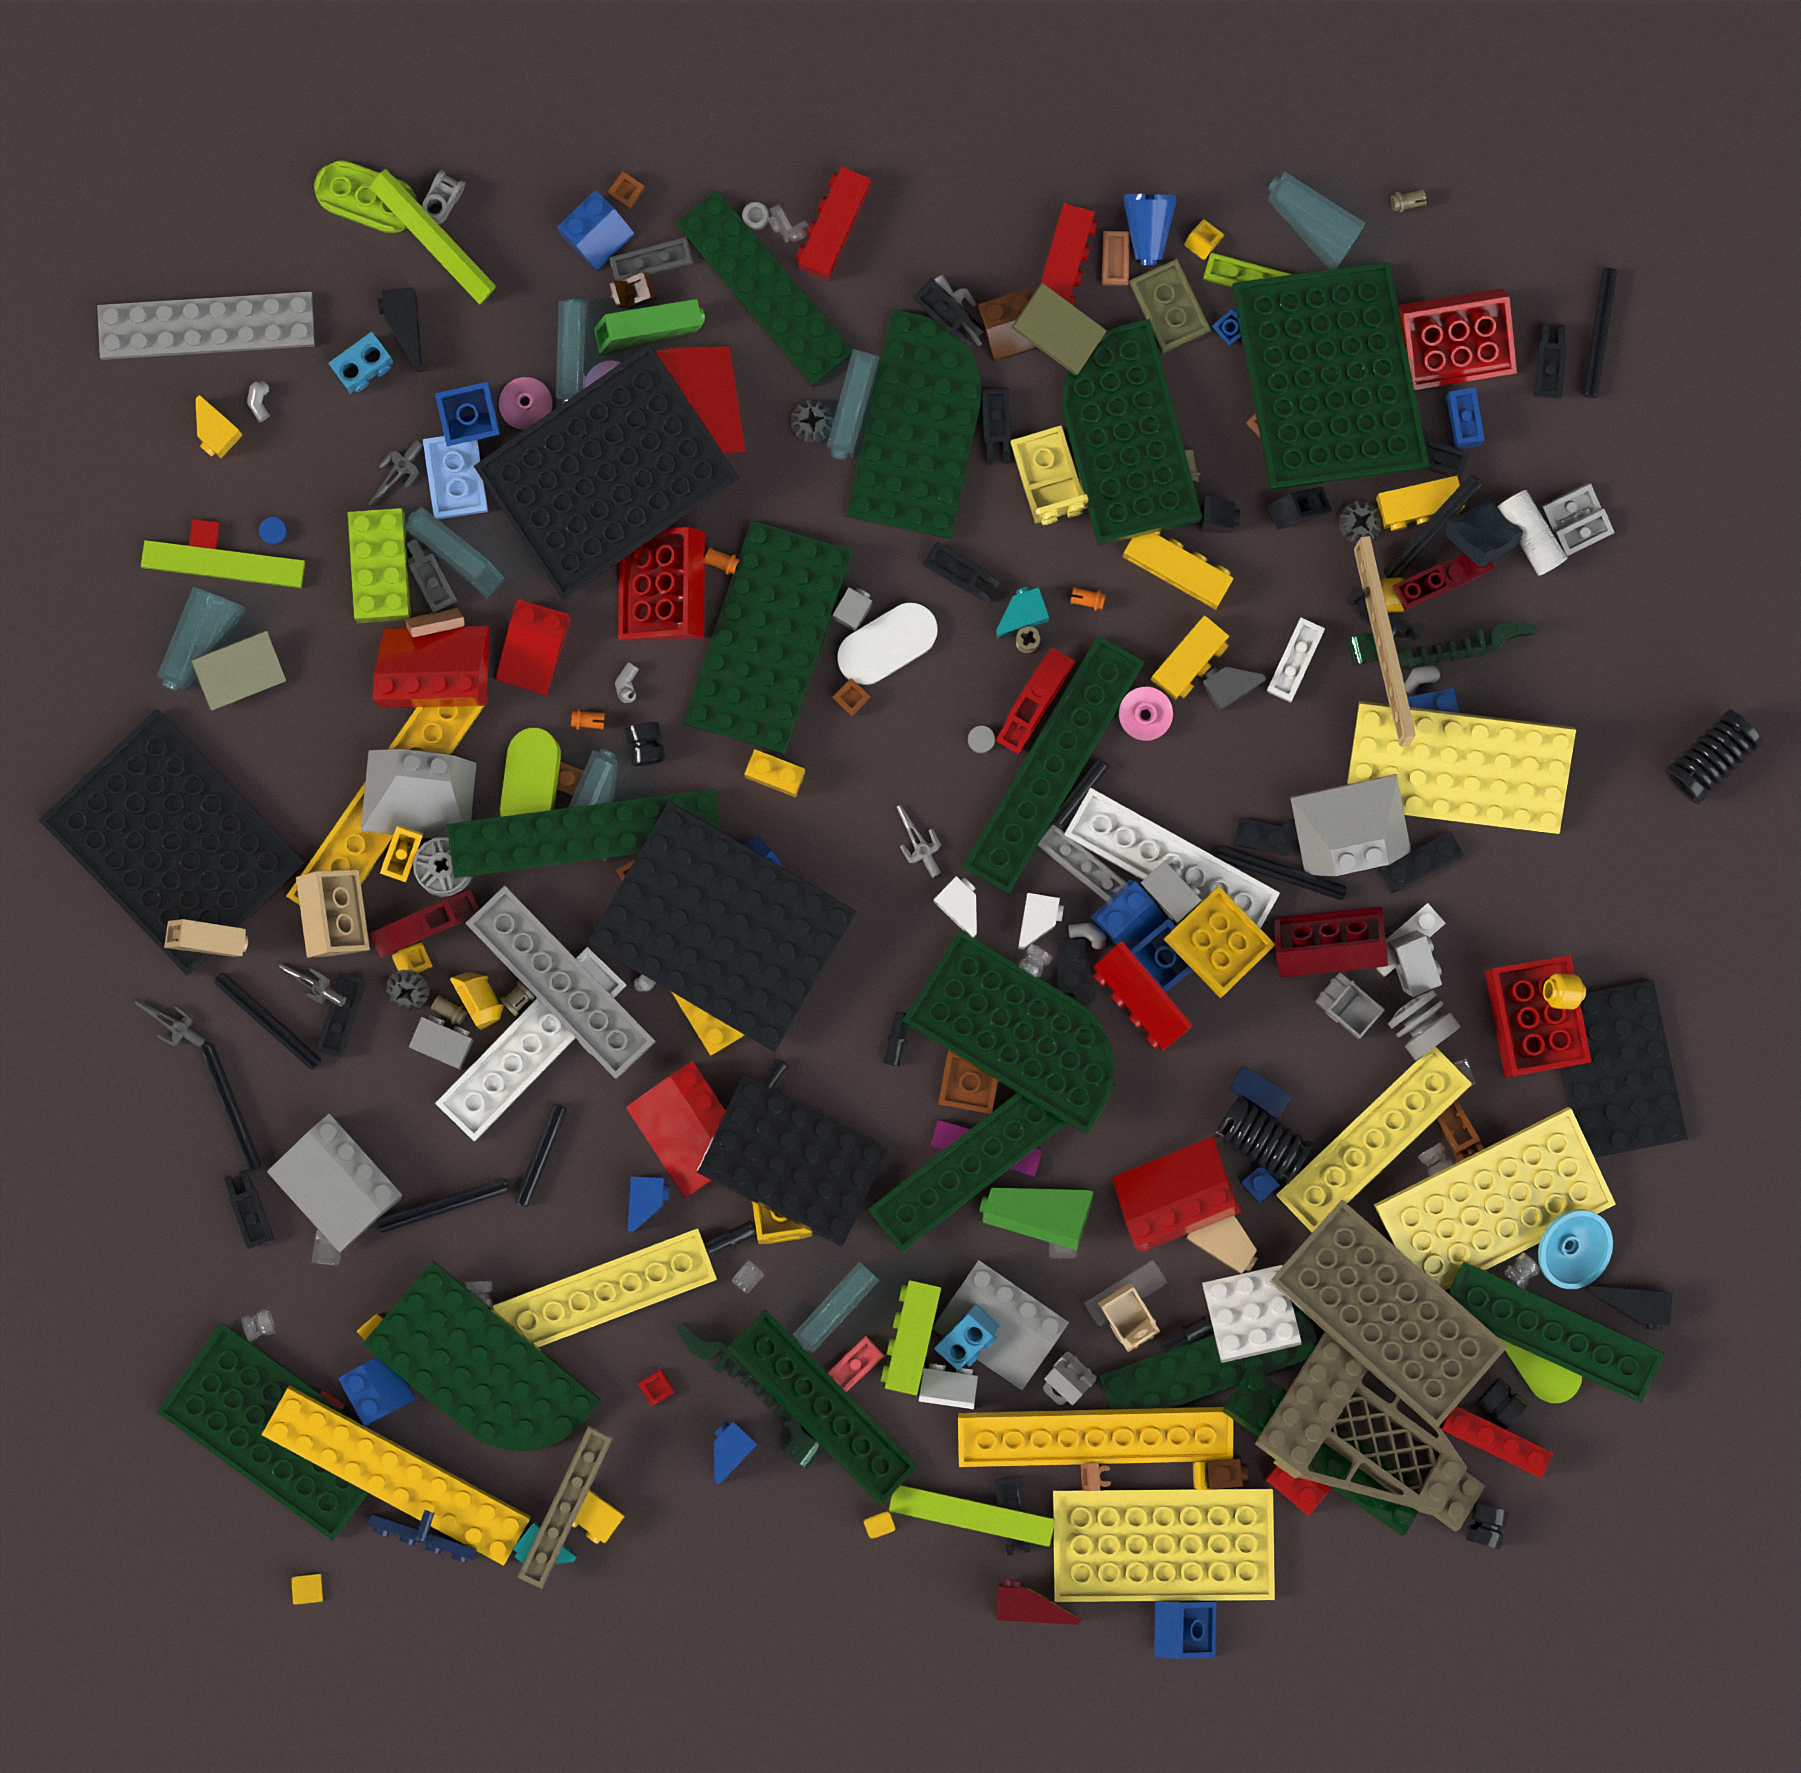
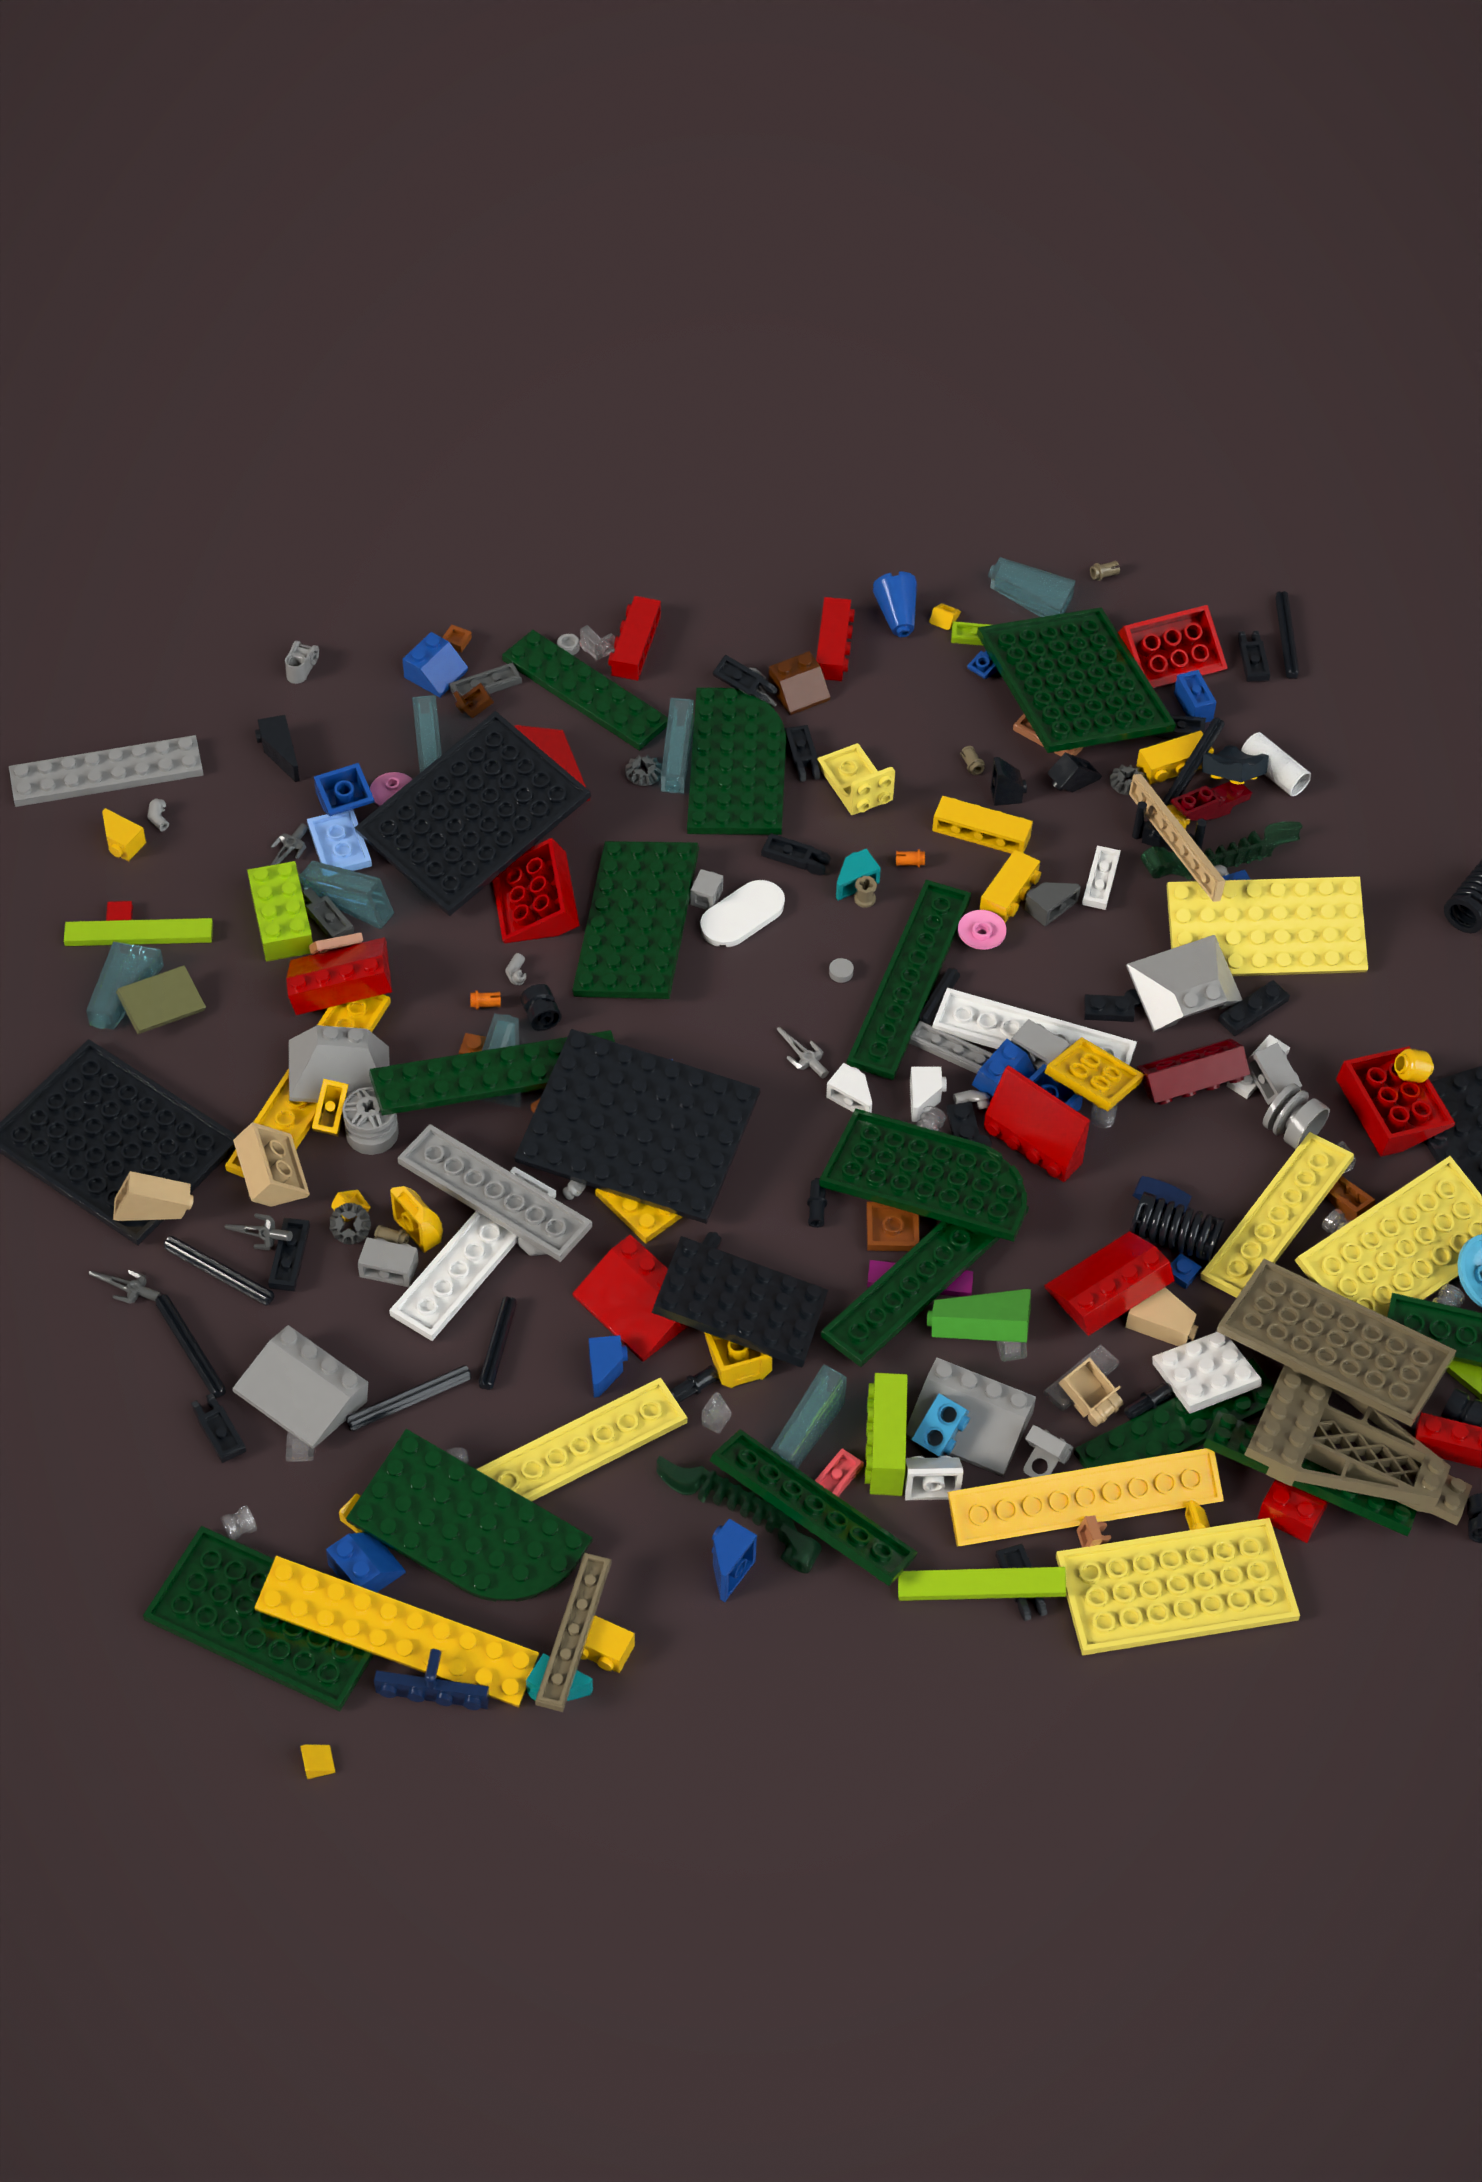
camera: 10 degrees left, 30 degrees down
(273, 531) = (181, 903): blue tile -> none
(346, 192) = (235, 671): lime tile -> none
(357, 357) = (245, 775): dark azure brick -> none
(424, 923) = (355, 1167): dark red slope -> none
(432, 236) = (296, 682): lime tile -> none
(517, 998) = (455, 1217): dark tan bush -> none
(530, 773) = (440, 1034): lime tile -> none
(532, 647) = (427, 951): red slope -> none
(647, 325) = (471, 712): bright green slope -> none
(656, 1387) = (645, 1524): red tile -> none
(721, 560) = (584, 872): orange pin -> none
(775, 773) = (662, 1013): yellow brick -> none
(851, 697) = (719, 953): dark orange plate -> none
(879, 1524) = (891, 1609): yellow slope -> none
(1025, 1605) = (1061, 1652): dark red slope -> none
(1034, 700) = (881, 931): red slope -> none
(1059, 329) = (840, 673): olive tile -> none
(1115, 258) = (875, 636): nougat tile -> none
(1128, 439) = (915, 734): dark green plate -> none
(1170, 306) = (928, 660): olive tile -> none
(1185, 1629) = (1218, 1656): blue slope -> none
(1227, 1473) = (1221, 1509): reddish brown bracket -> none
(1281, 872) = (1138, 1031): black axle -> none
(1349, 1005) = (1224, 1119): light grey piece -> none
(1577, 519) = (1312, 753): light grey slope -> none

